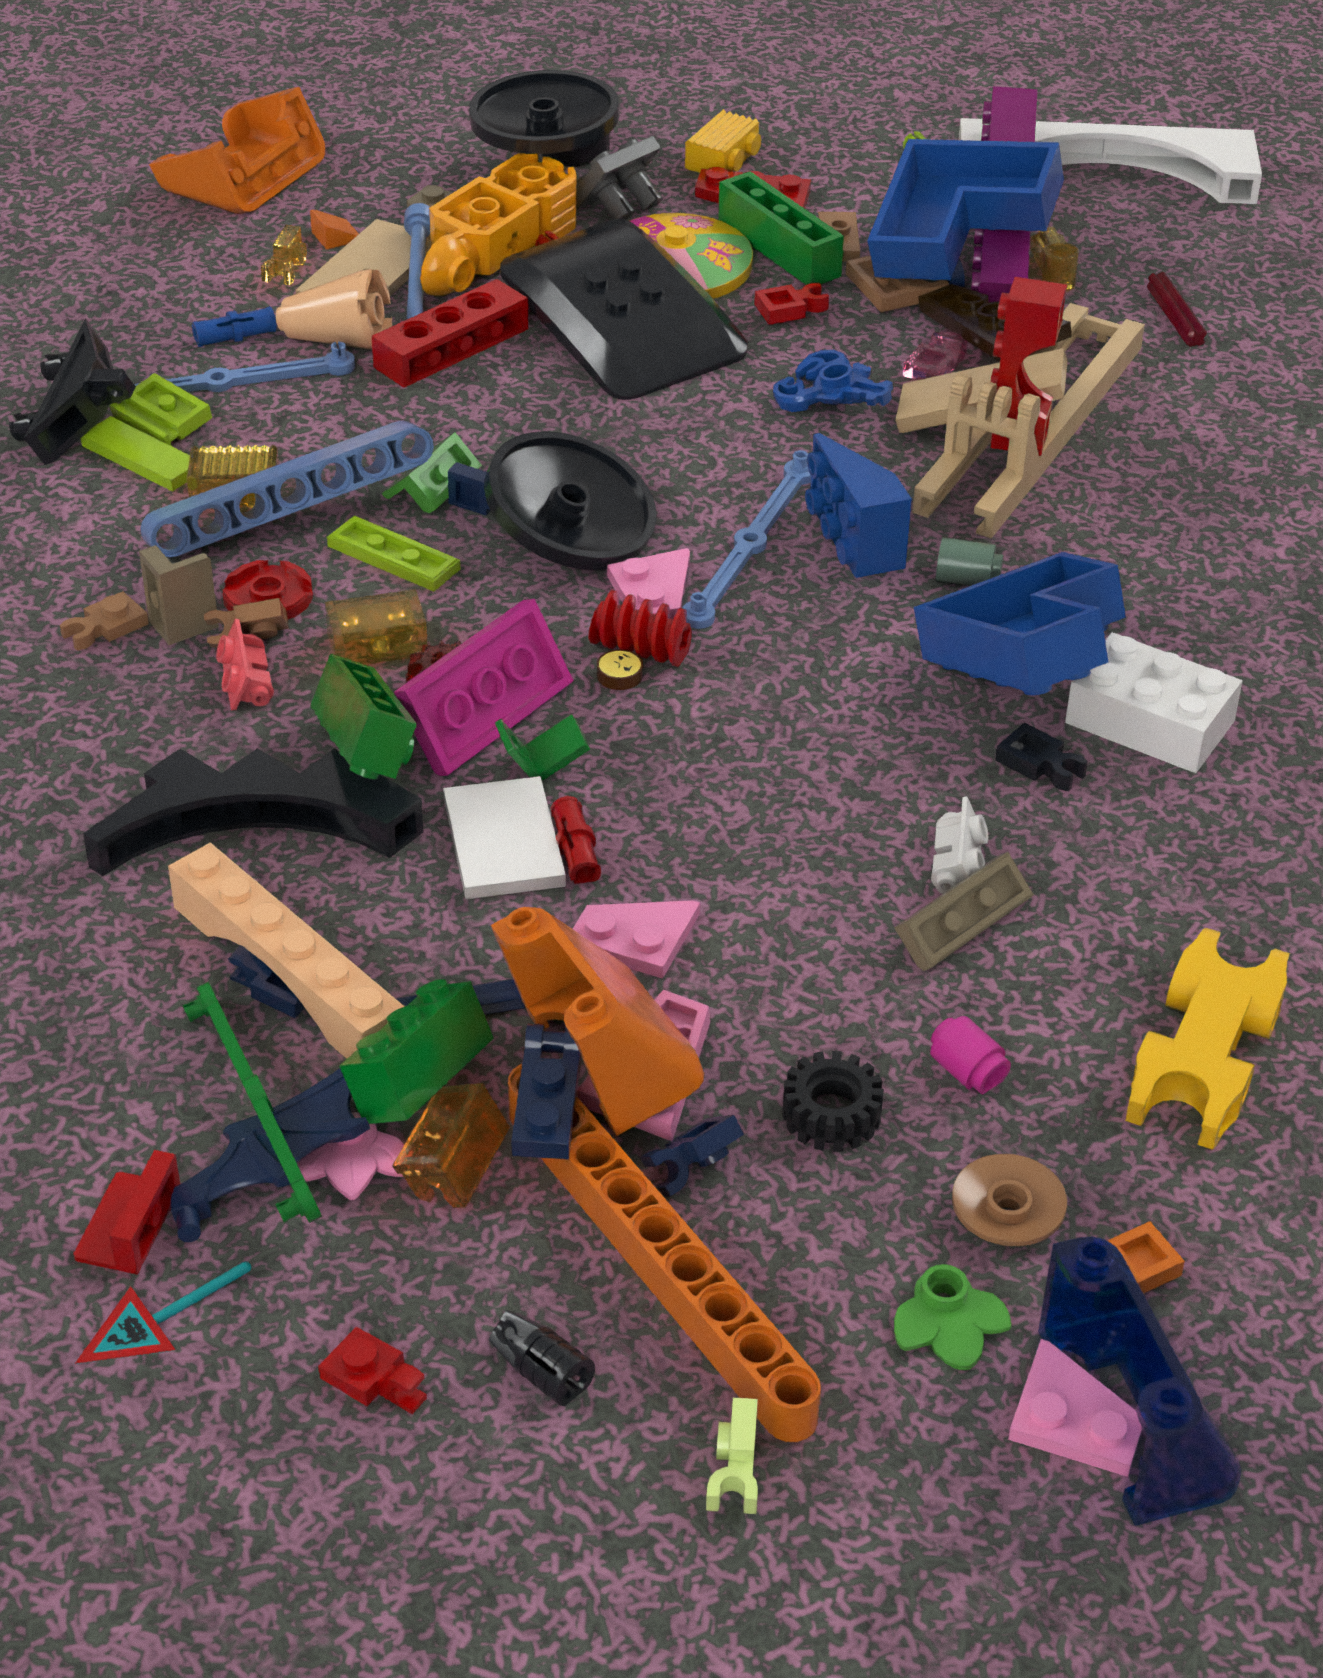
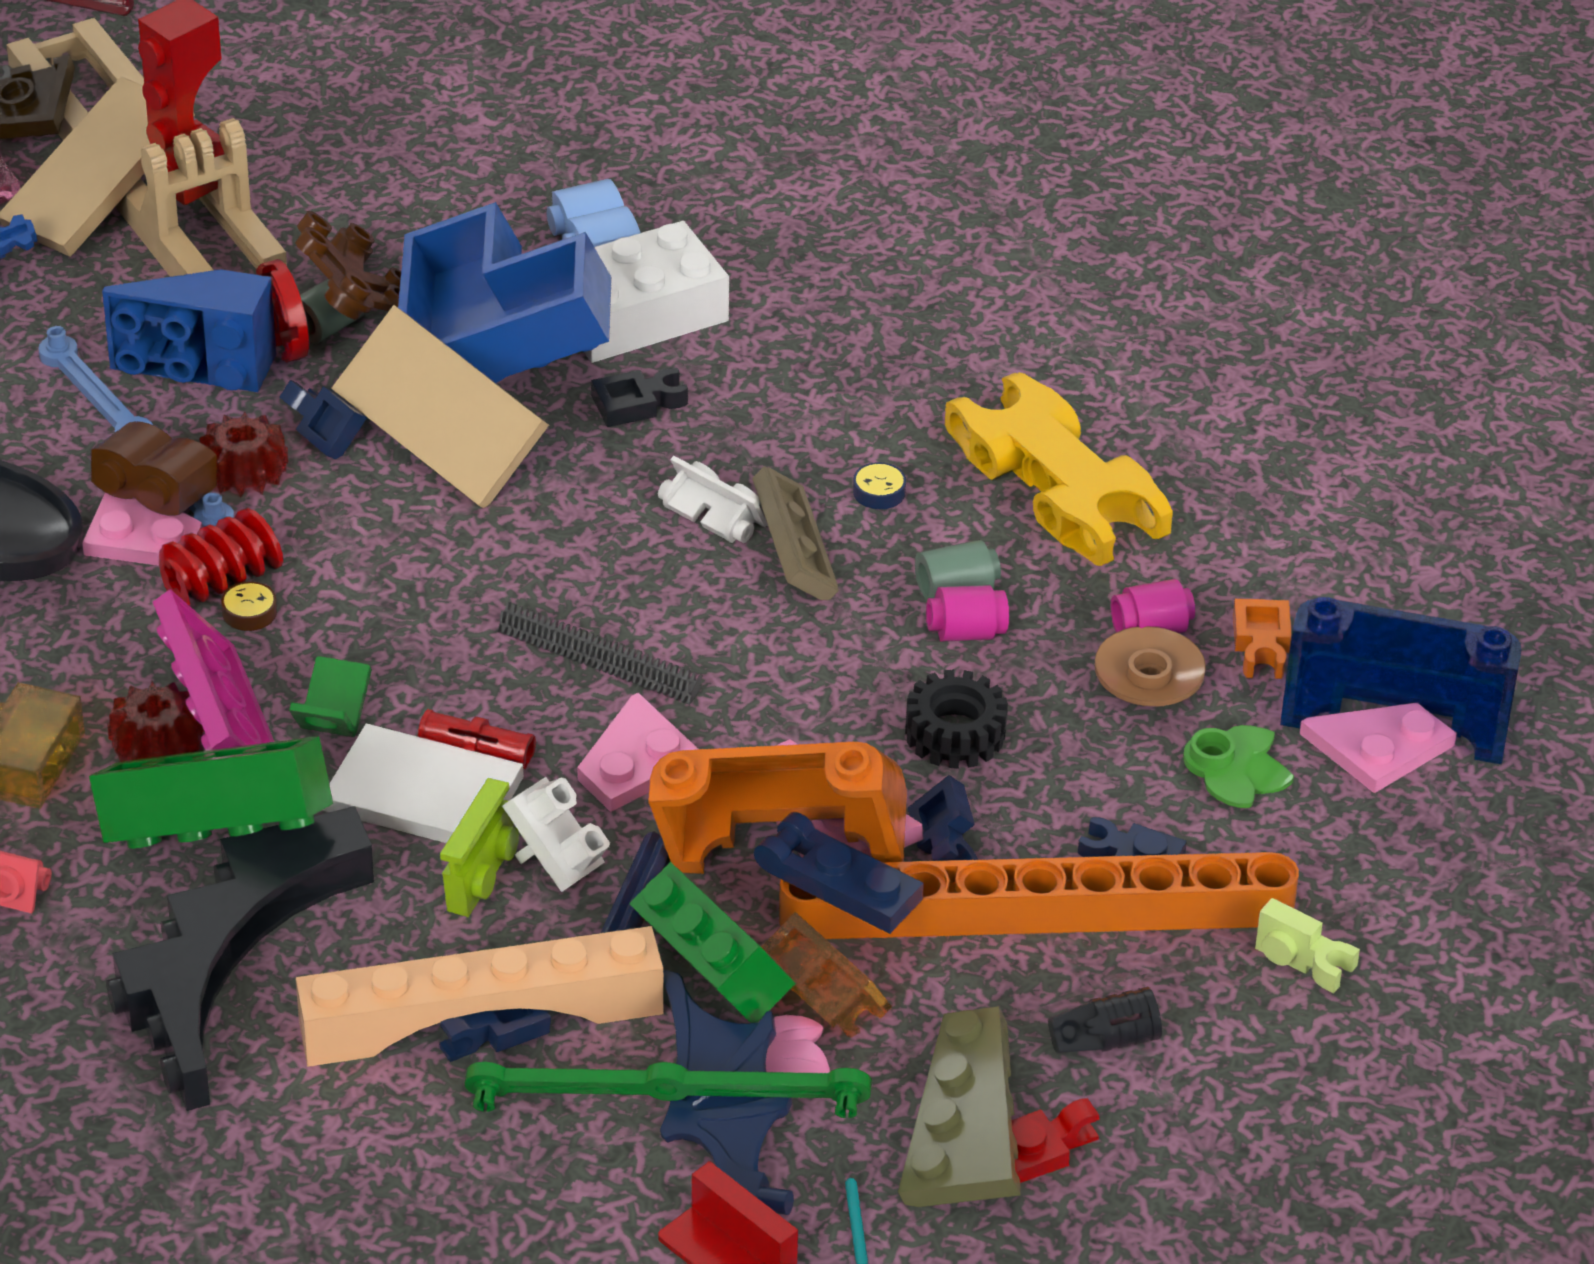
camera: 60 degrees left, 0 degrees up
(372, 1298) = (964, 1122): none -> olive wing
(438, 883) = (478, 849): none -> lime plate
(486, 900) = (553, 832): none -> white hips
(693, 554) = (153, 468): none -> reddish brown brick
(731, 866) = (599, 654): none -> dark grey axle
(766, 592) = (247, 452): none -> clear red gear
(779, 1292) = (1136, 842): none -> dark blue plate
(845, 617) = (327, 420): none -> dark blue plate
(892, 654) = (440, 407): none -> tan tile
(920, 535) = (288, 310): none -> red tile
(959, 553) = (343, 265): none -> reddish brown plant
(1013, 1024) = (956, 565): none -> sand green brick
(1082, 939) = (879, 485): none -> tile
(1086, 1172) = (1154, 605): none -> dark pink brick
(1215, 641) = (593, 210): none -> light blue brick

